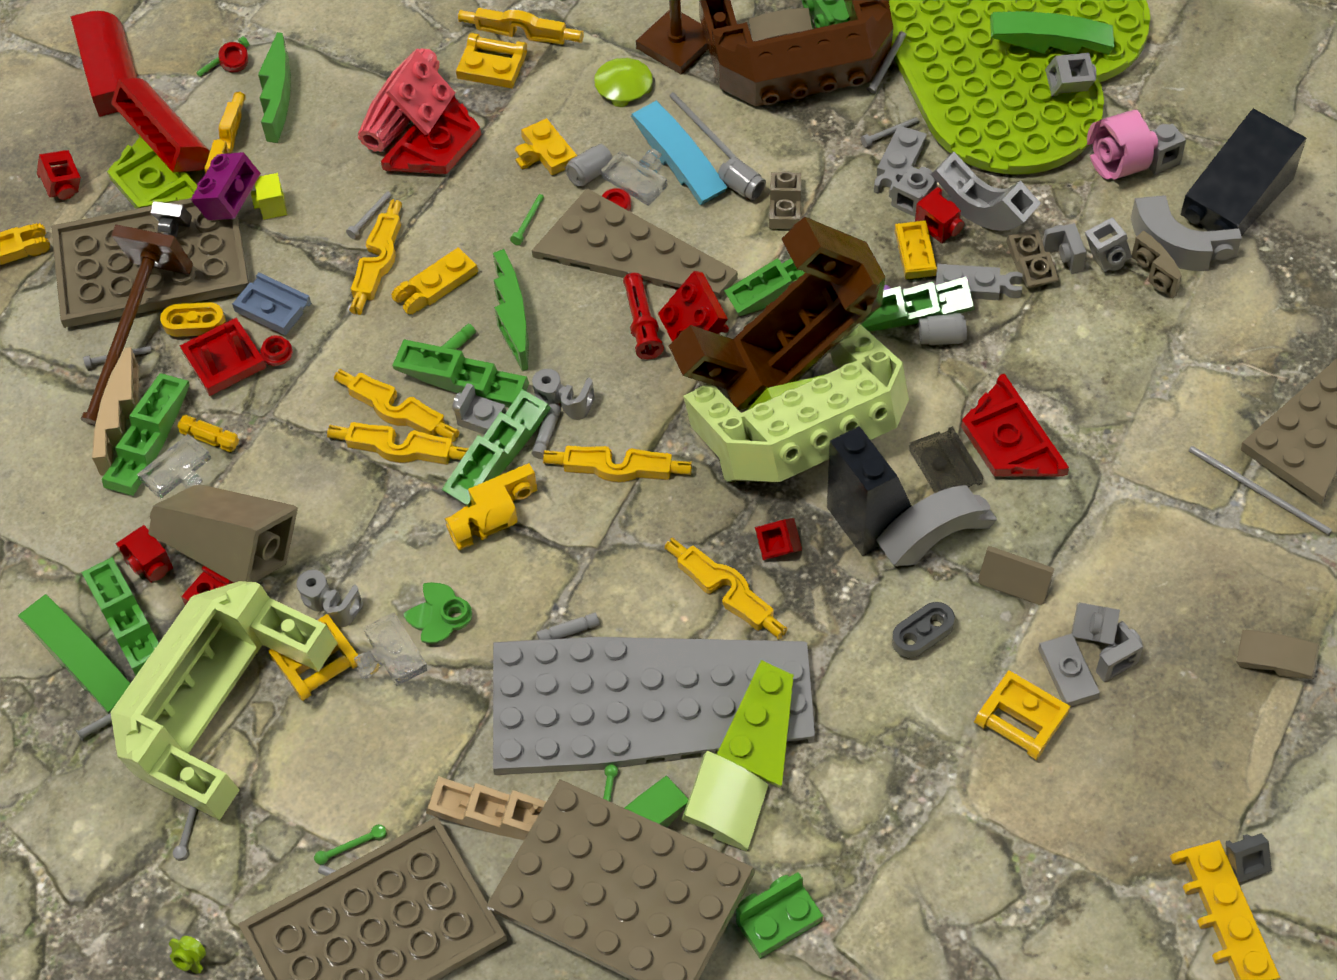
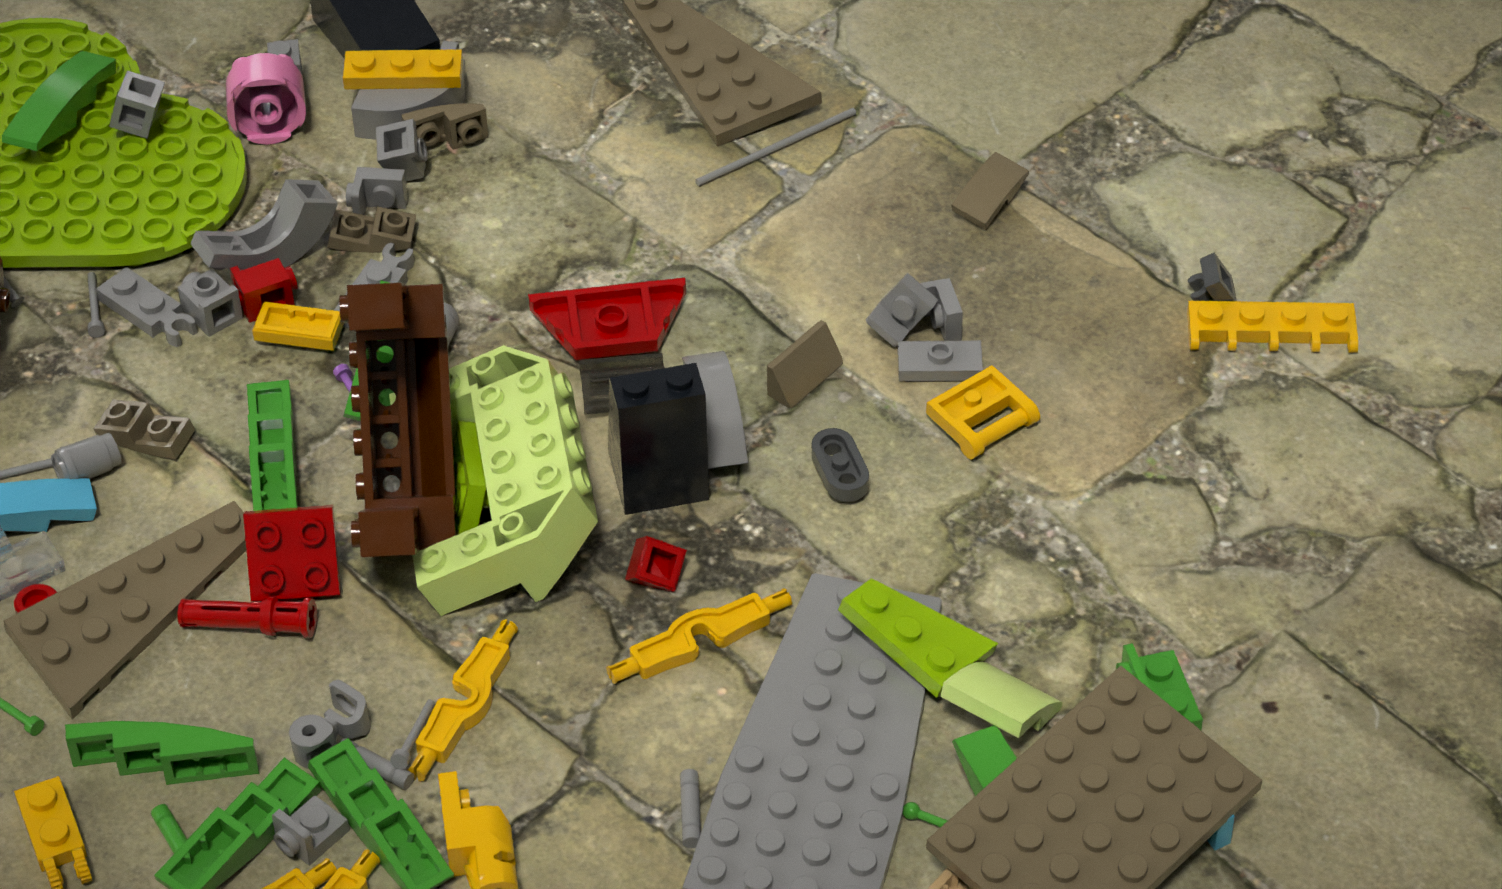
camera: 75 degrees left, 10 degrees down
(547, 441) = (401, 757): none -> light grey piece
(1187, 213) = (403, 69): none -> yellow plate

